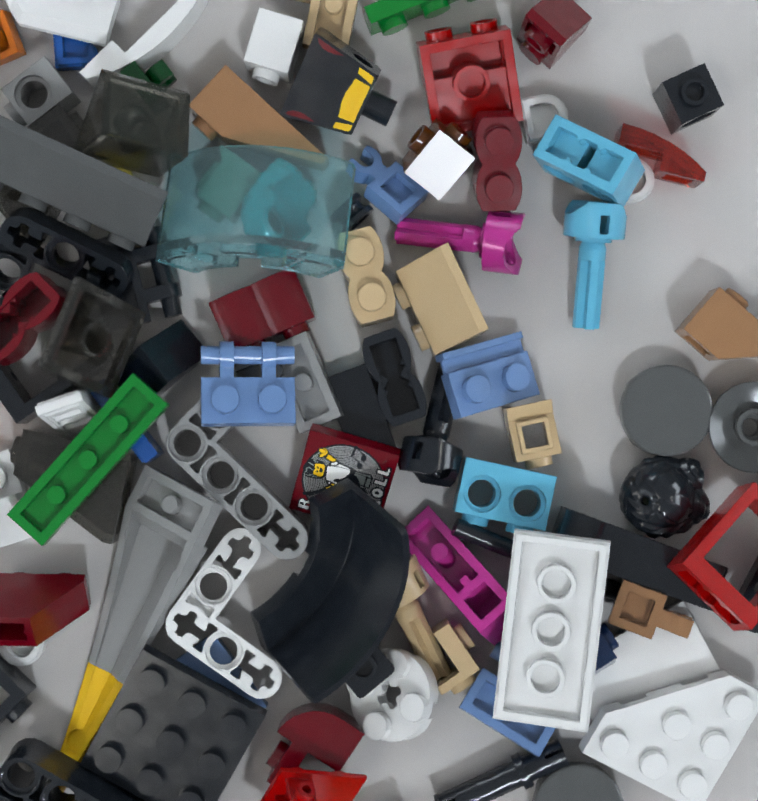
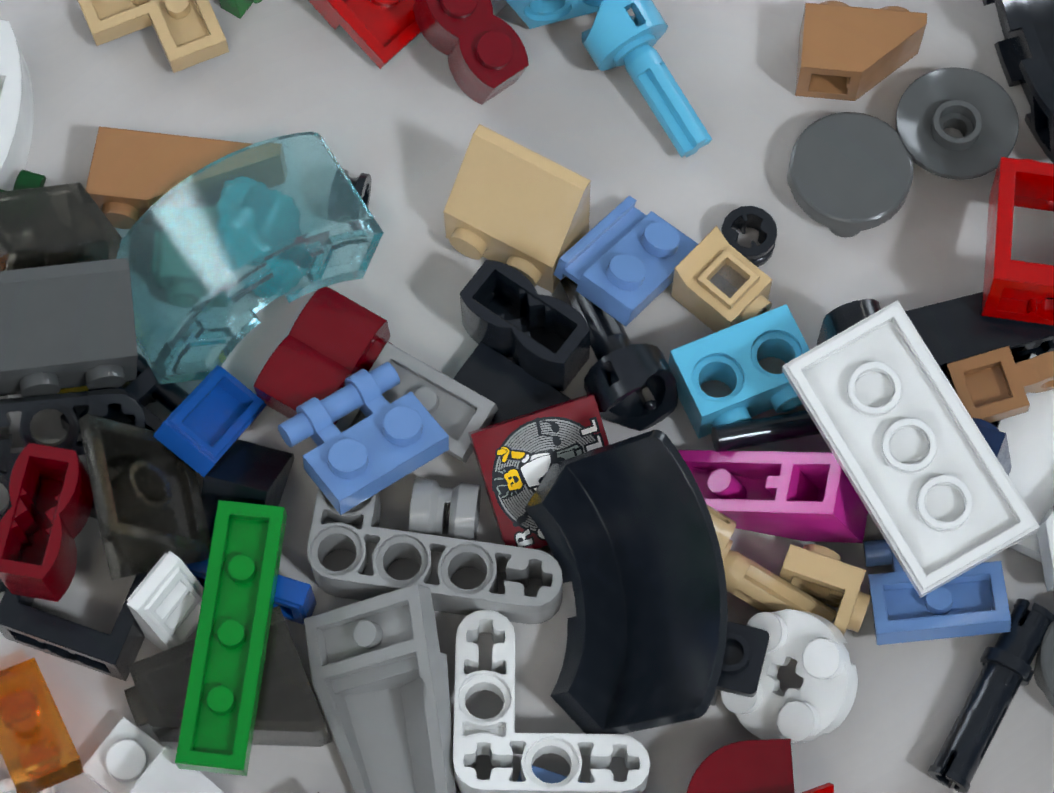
camera: 30 degrees left, 20 degrees down
(167, 309) = (210, 420): none -> blue tile
(259, 451) = (430, 505): none -> light grey wheel
(274, 47) = (141, 83): white brick -> none
(336, 87) = (241, 75): black torso -> none
(369, 288) = (421, 249): tan brick -> none
(388, 187) = (374, 143): medium blue plate -> none
(438, 156) = (403, 72): brick -> none
(492, 241) = (525, 121): dark pink piece -> none
(586, 412) = (757, 219): none -> black bush
(673, 496) = (938, 254): black hair -> none

